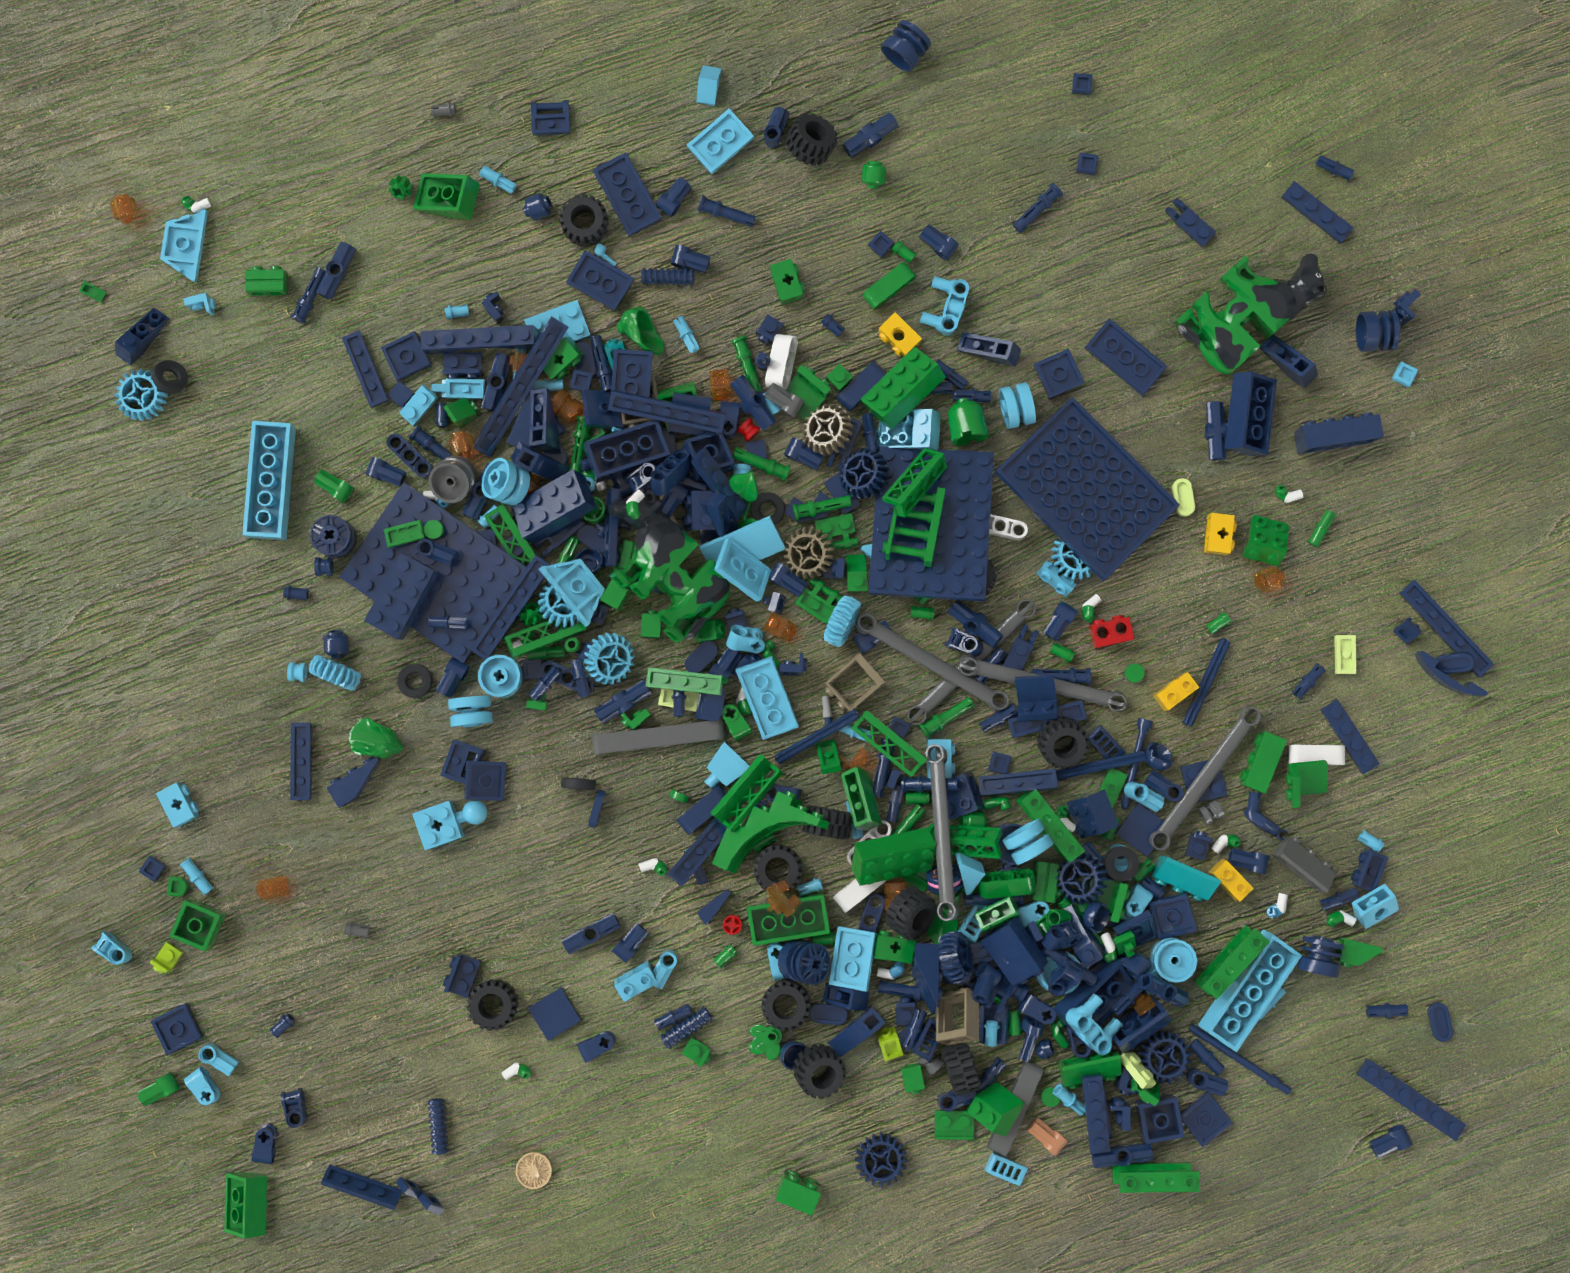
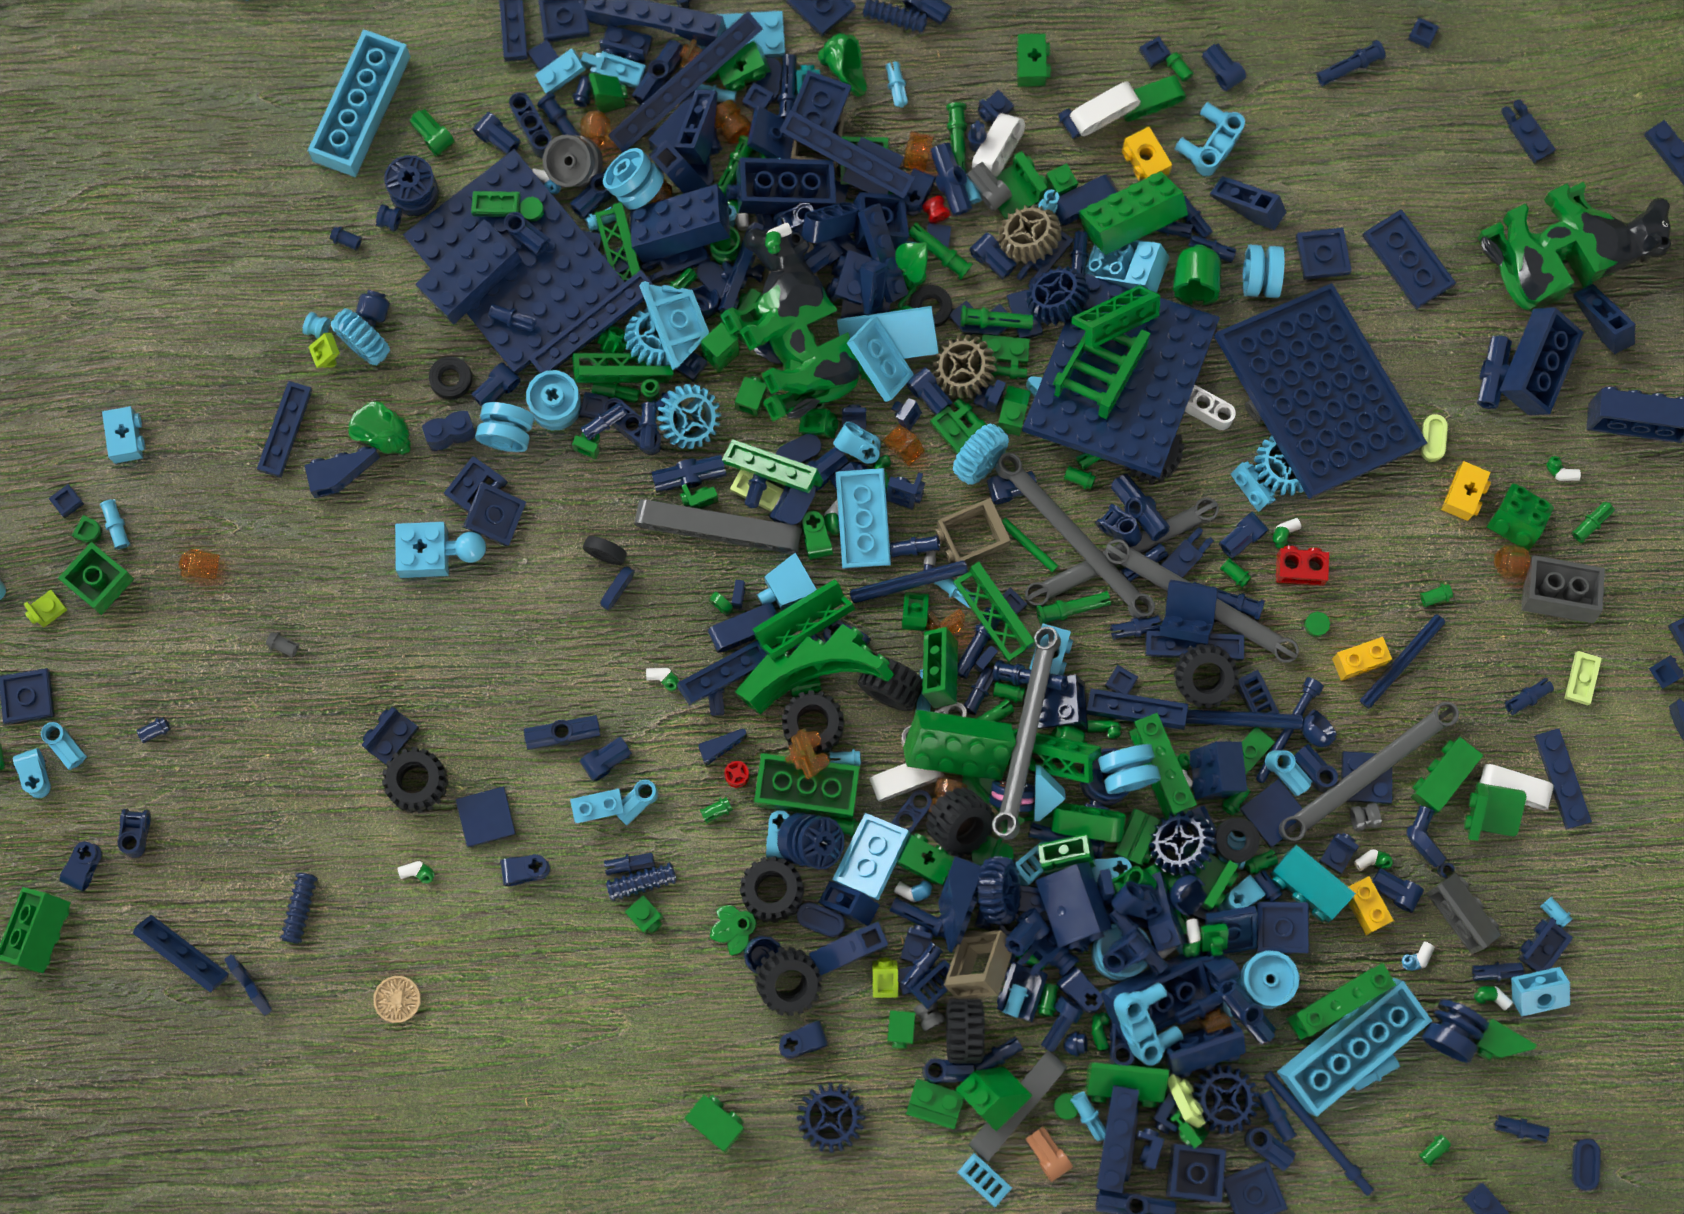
camera: 15 degrees right, 10 degrees down
(311, 692) = (324, 351): none -> lime bracket
(424, 728) = (455, 428): none -> dark blue brick
(690, 783) = (738, 594): none -> dark blue tile
(813, 706) = (915, 546): none -> dark blue pin
(835, 400) = (1049, 201): none -> medium azure axle
(847, 1107) = (808, 1039): none -> dark blue piece
(856, 308) = (1105, 108): none -> white beam
(898, 677) = (1029, 545): none -> green bar
(1313, 590) = (1563, 589): none -> dark grey slope
(1328, 1045) = (1435, 1150): none -> green pin

